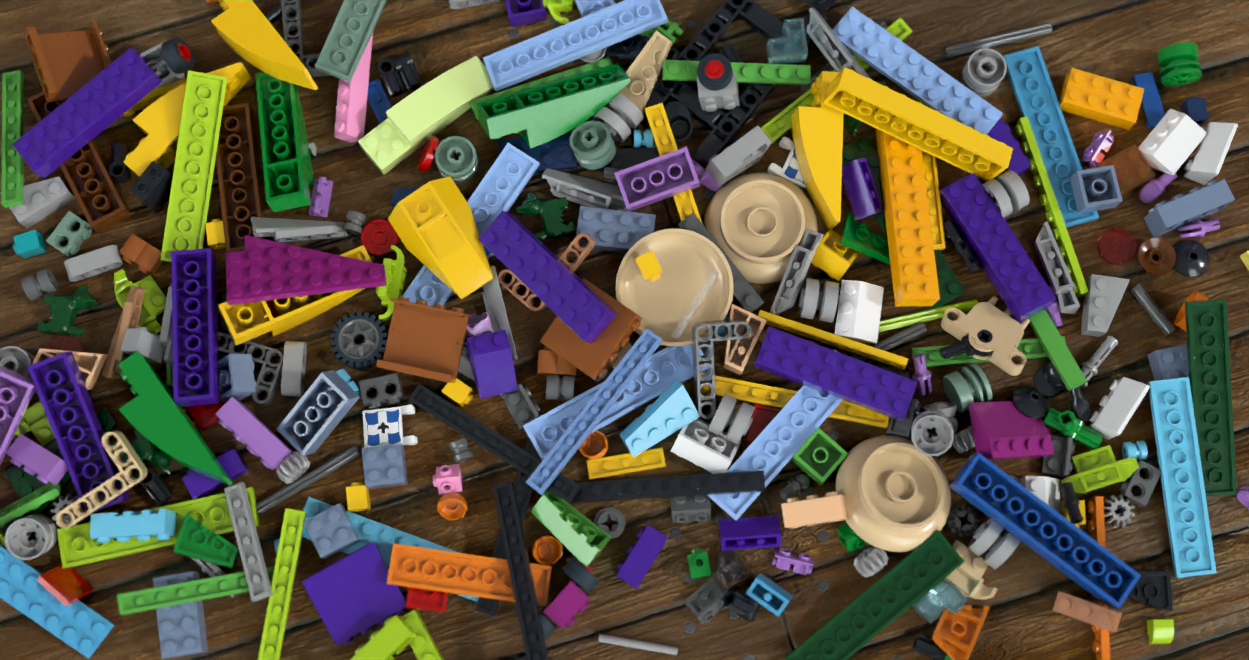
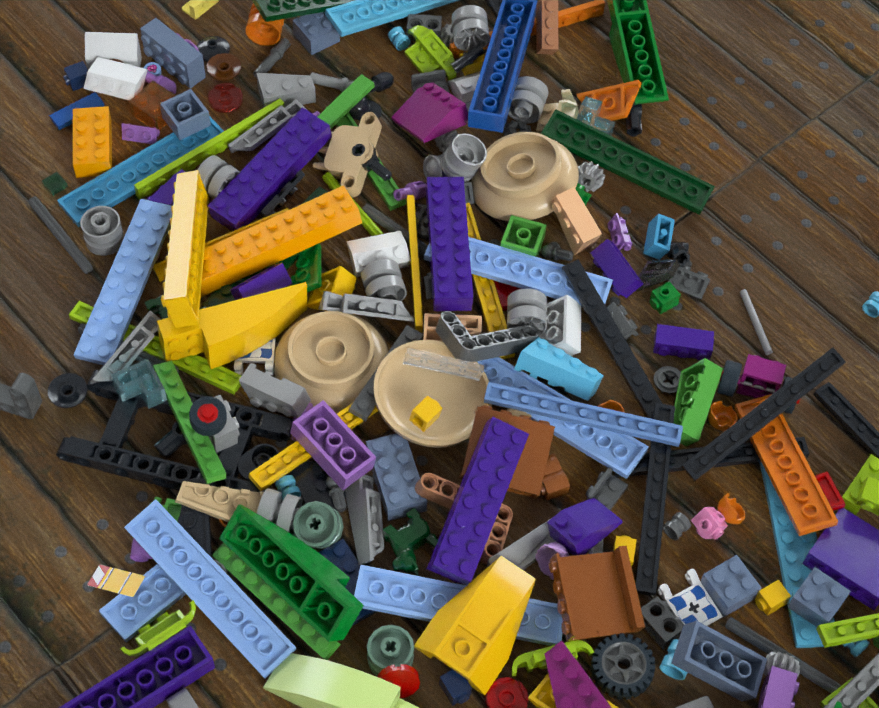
camera: 115 degrees left, 20 degrees down
(560, 387) = (572, 463): dark grey wheel -> none
(625, 464) = (610, 388): yellow tile -> none
(967, 387) = (406, 154): sand green wheel -> none
(1030, 402) = (395, 114): black dish -> none
(1063, 53) = (54, 183): none -> clear green tile
(1070, 426) = (402, 81): green piece -> none
(1106, 518) = (470, 27): none -> light grey wheel
(1118, 407) = (370, 52): white slope -> none
(1179, 64) = (36, 93): green wheel -> none
(1179, 186) = (153, 68): none -> light blue tile

